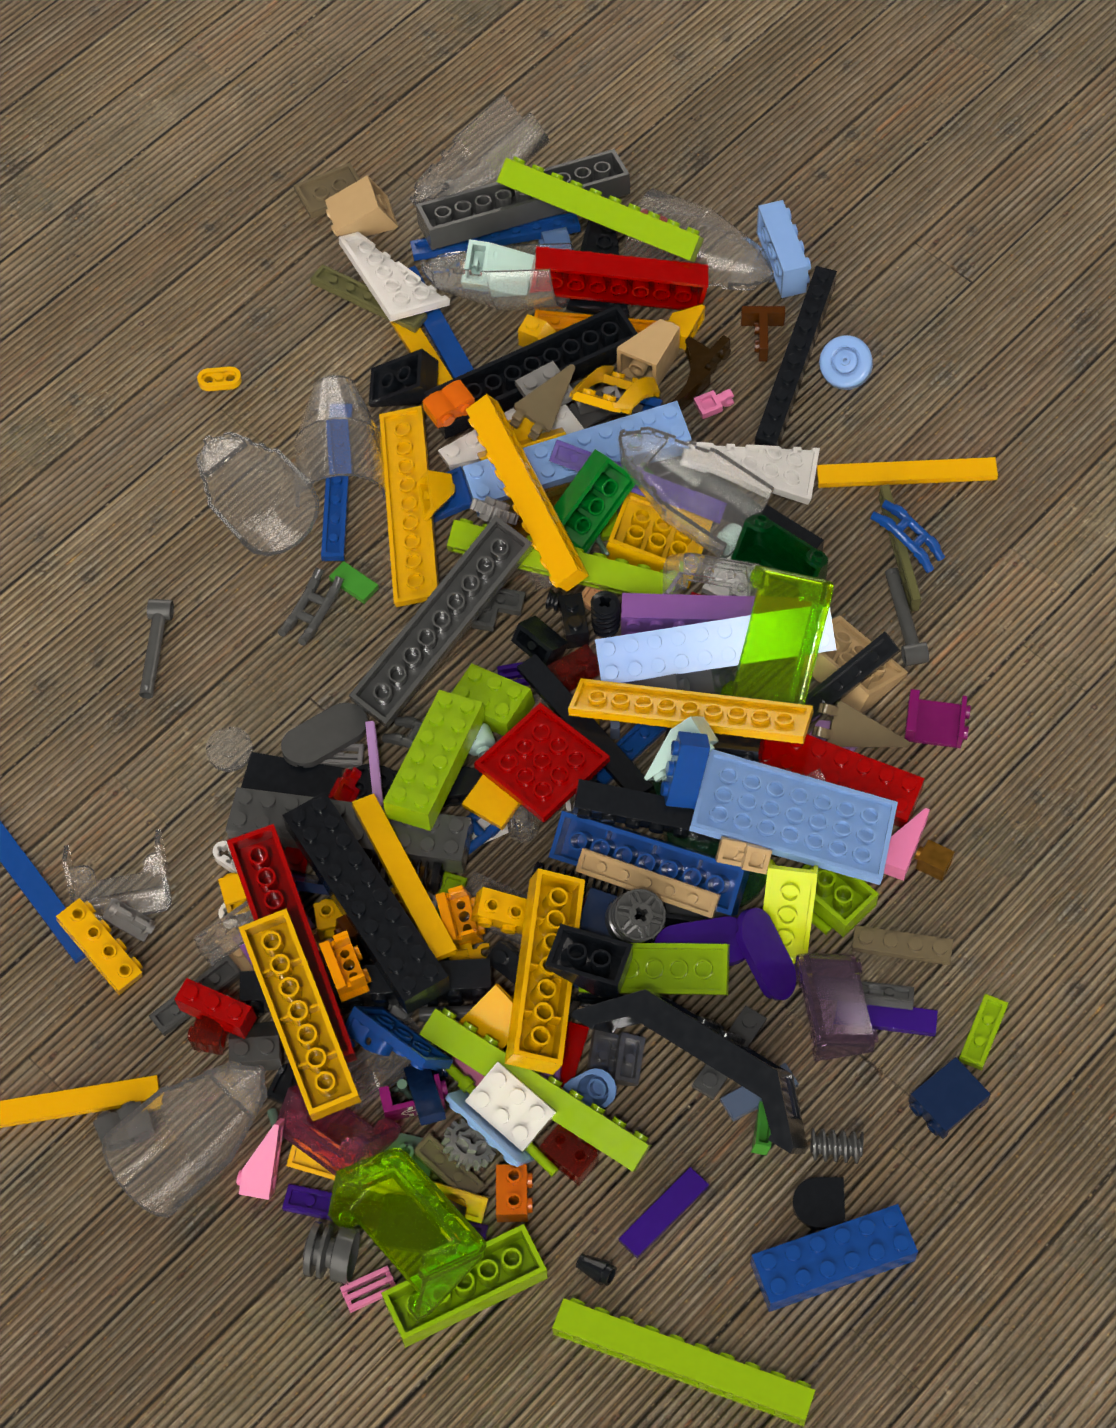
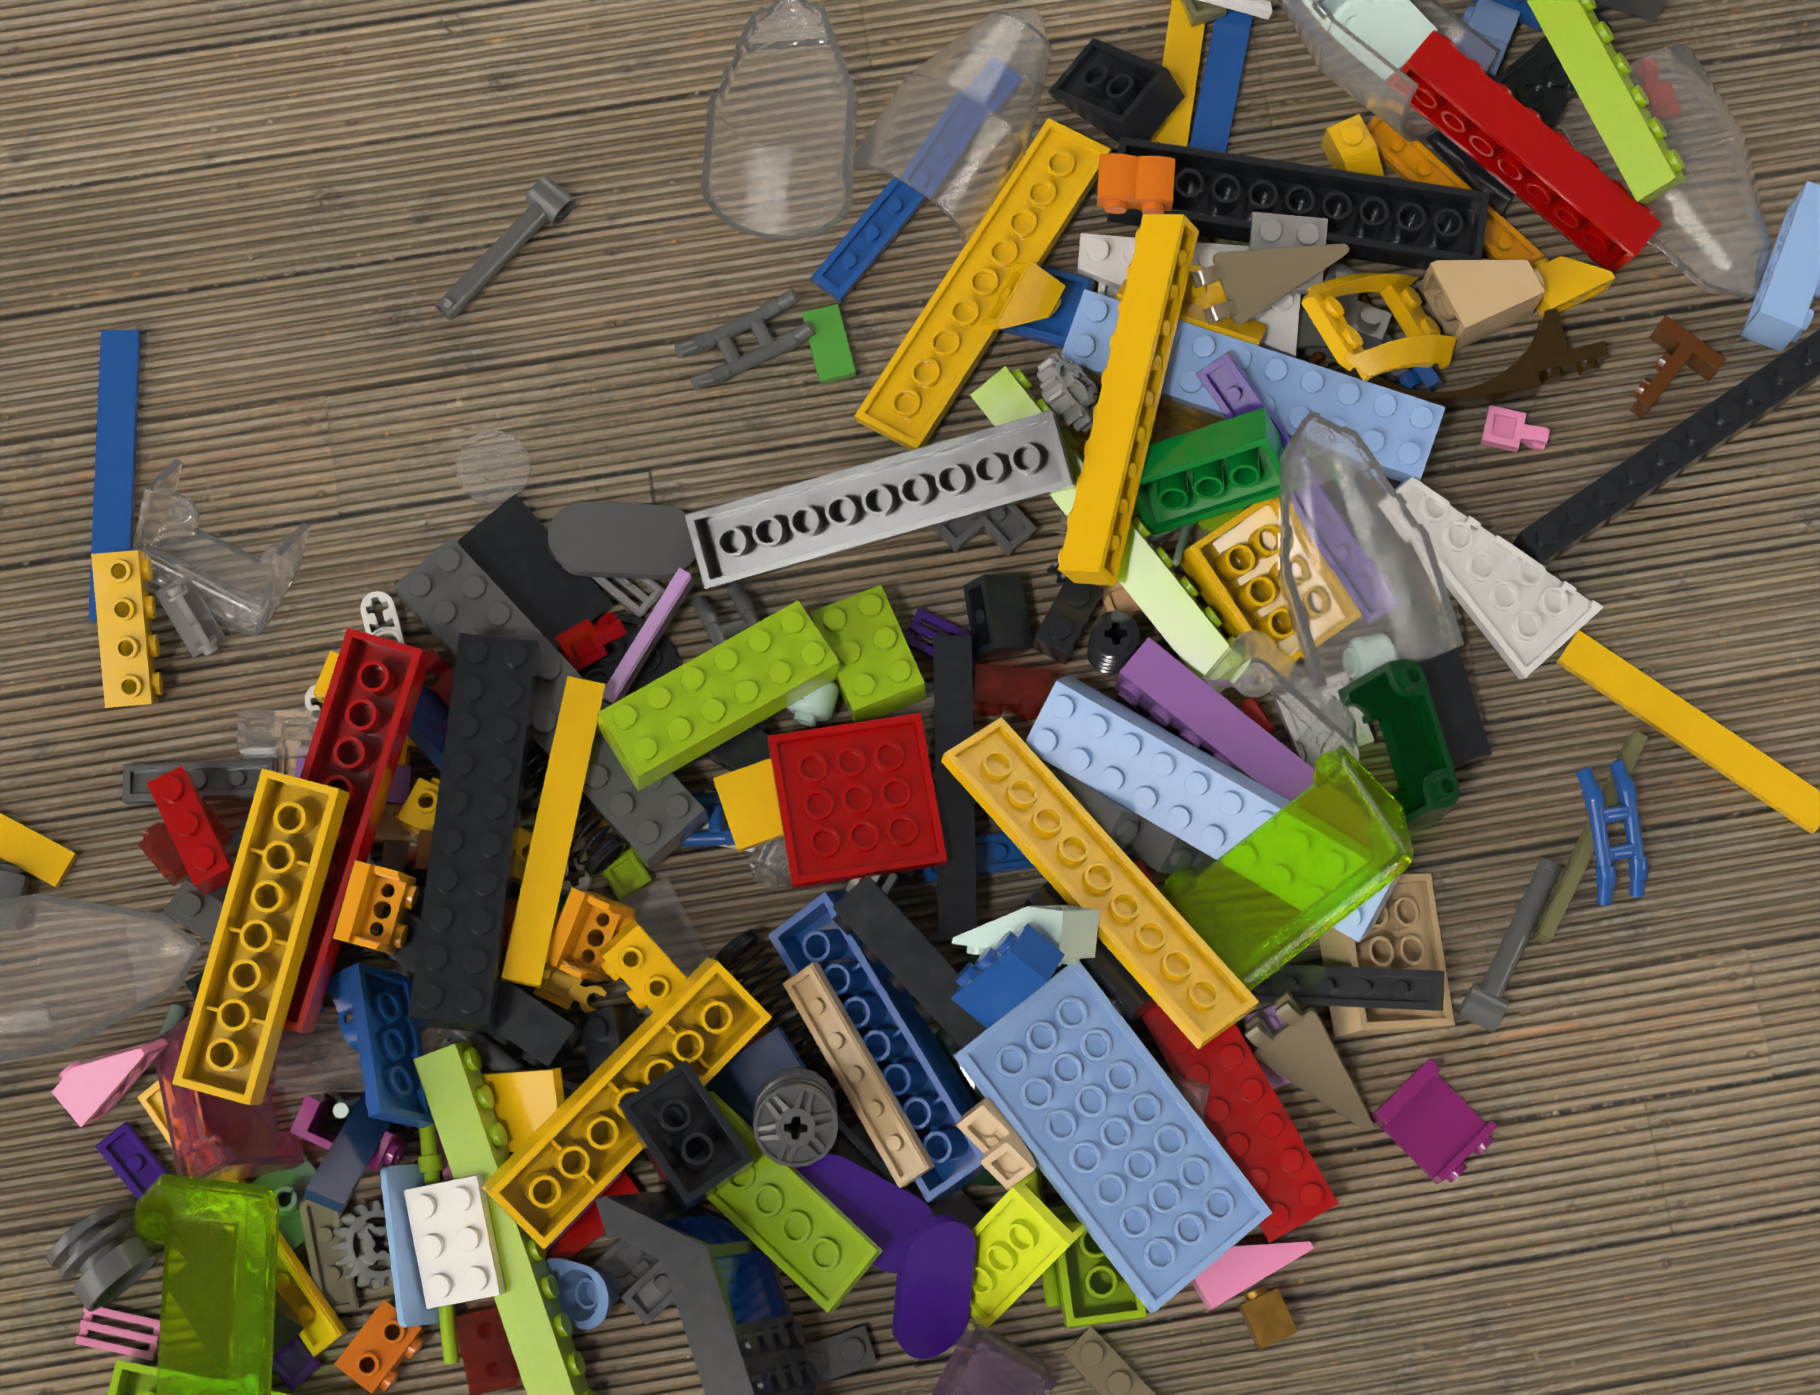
camera: 30 degrees right, 15 degrees up
(846, 362) = (1742, 507): light blue wheel -> none

